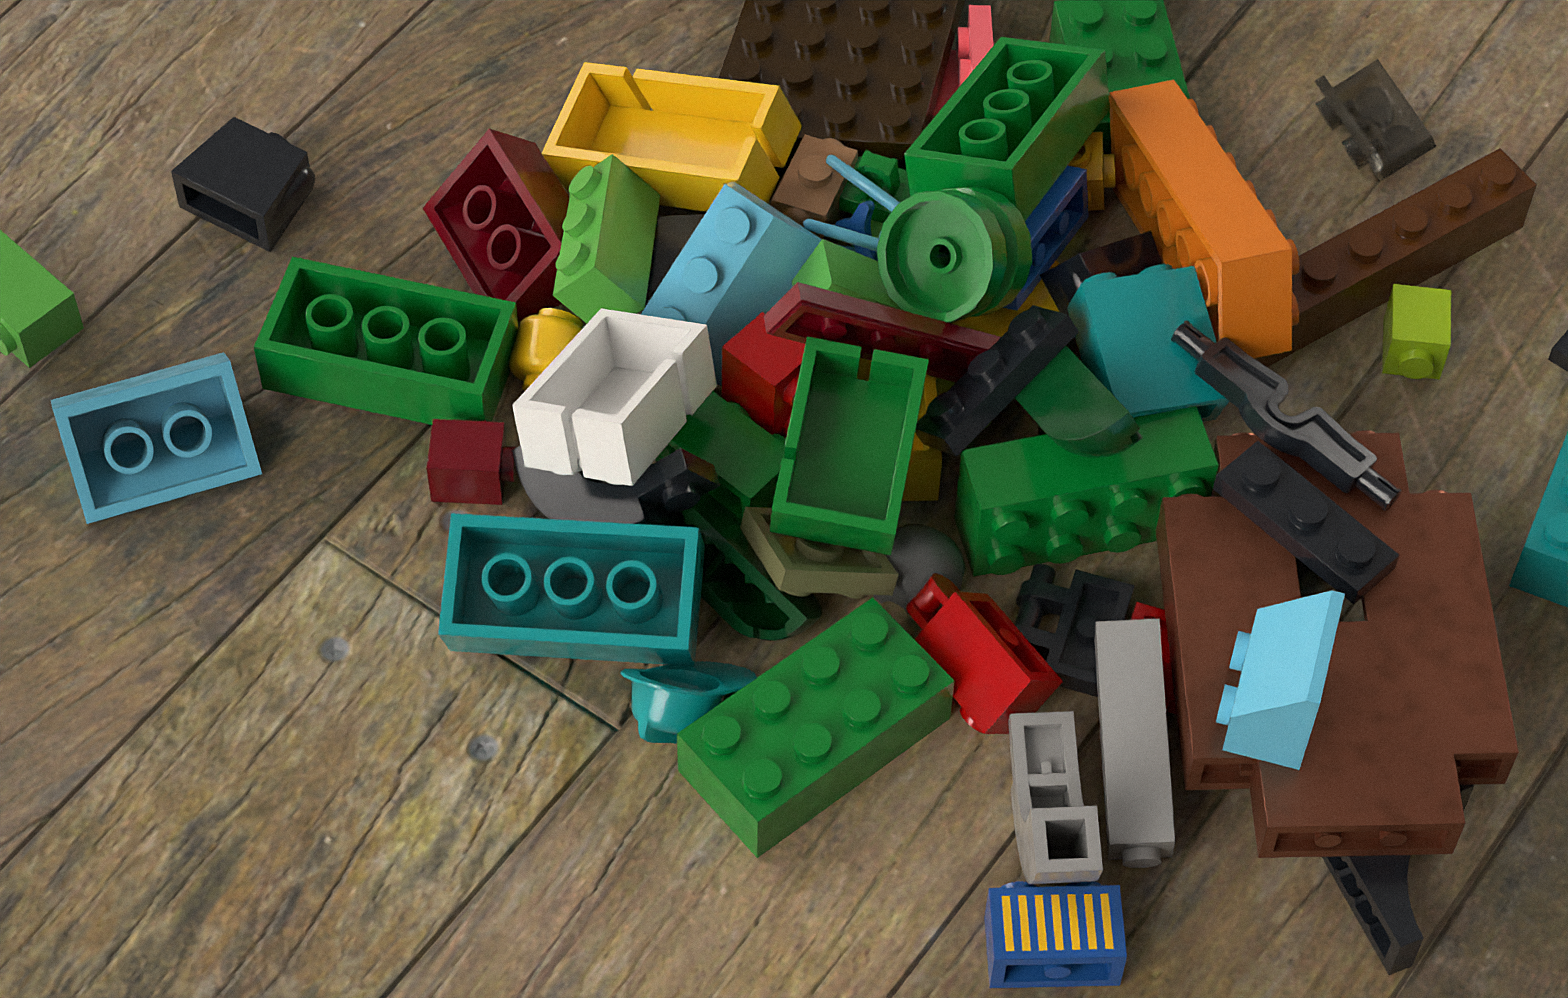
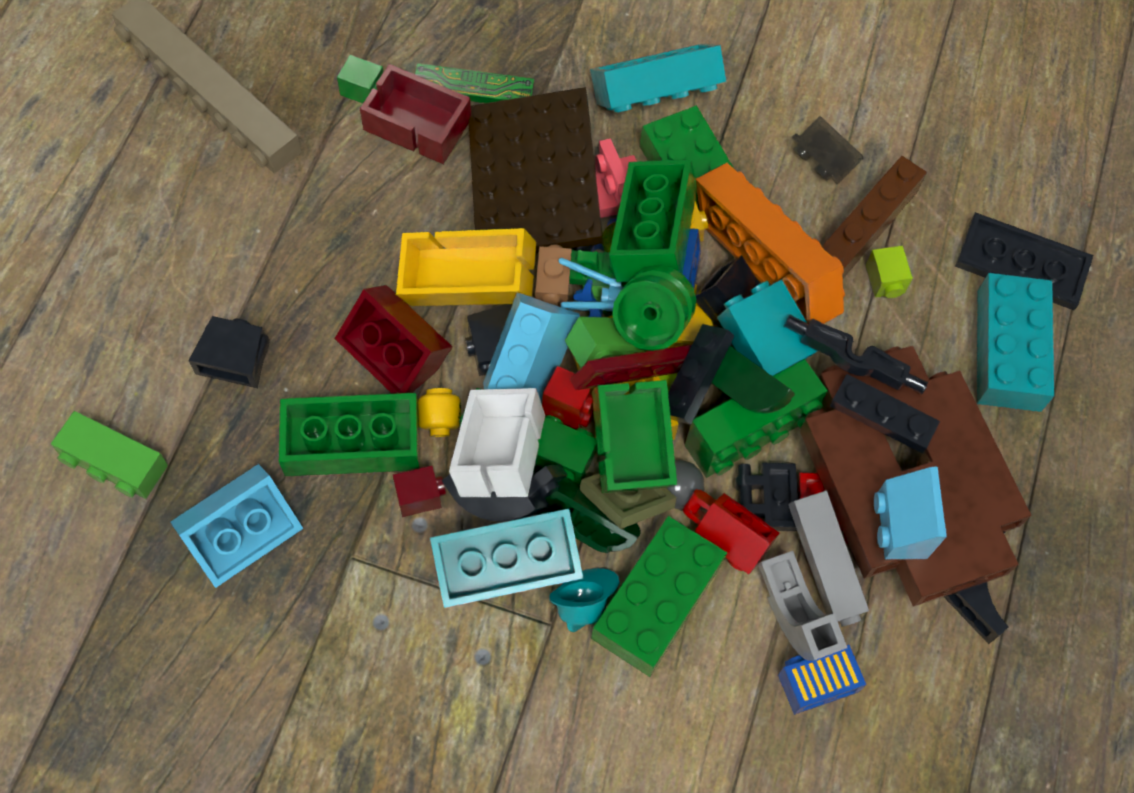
camera: 20 degrees left, 10 degrees up
(606, 241) = (454, 343): bright green brick -> none

